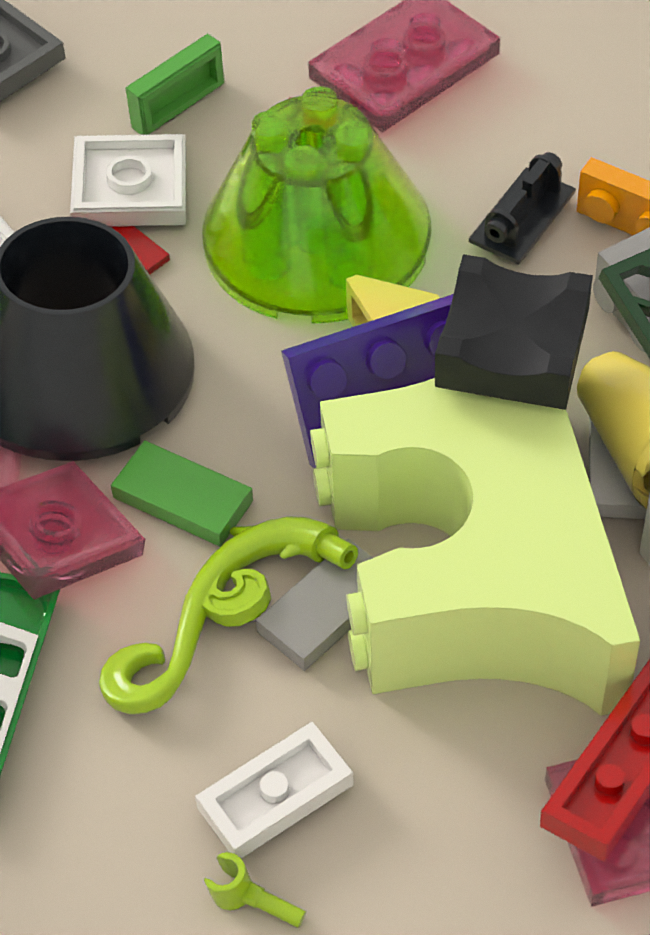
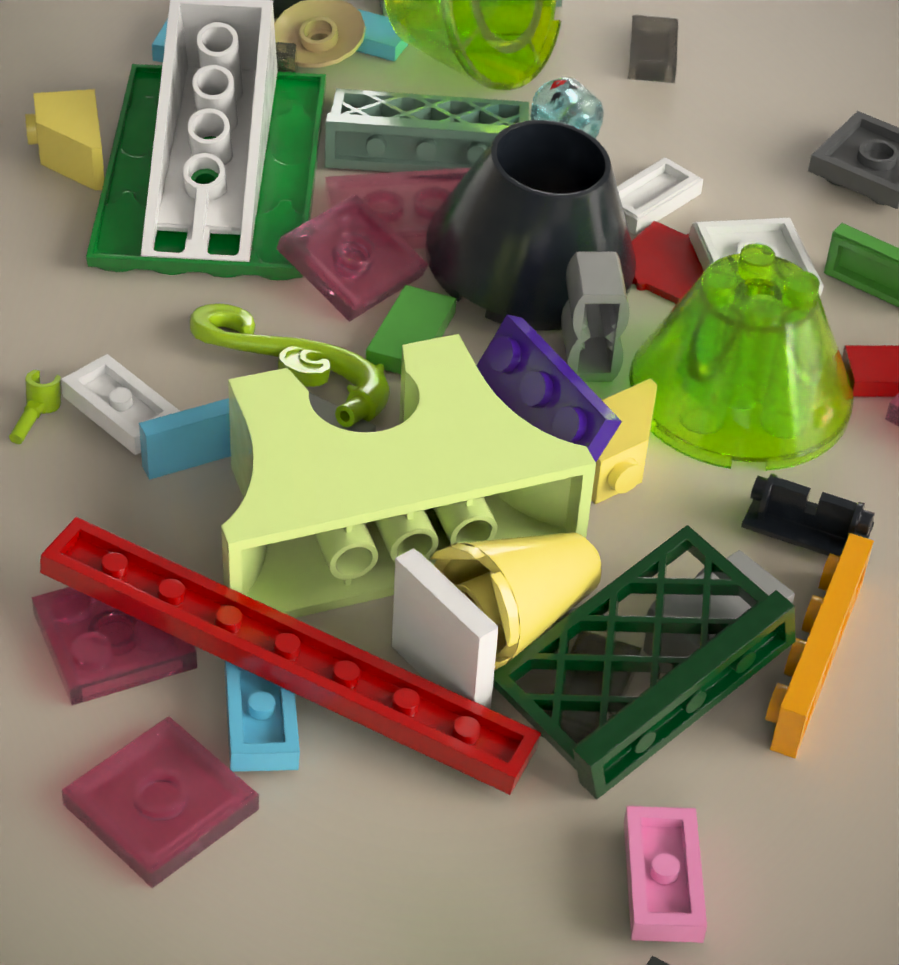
camera: 75 degrees right, 10 degrees down
(237, 307) = (595, 315): none -> light grey brick
(349, 707) = (185, 439): none -> medium azure tile
(513, 333) = (543, 424): black brick -> none

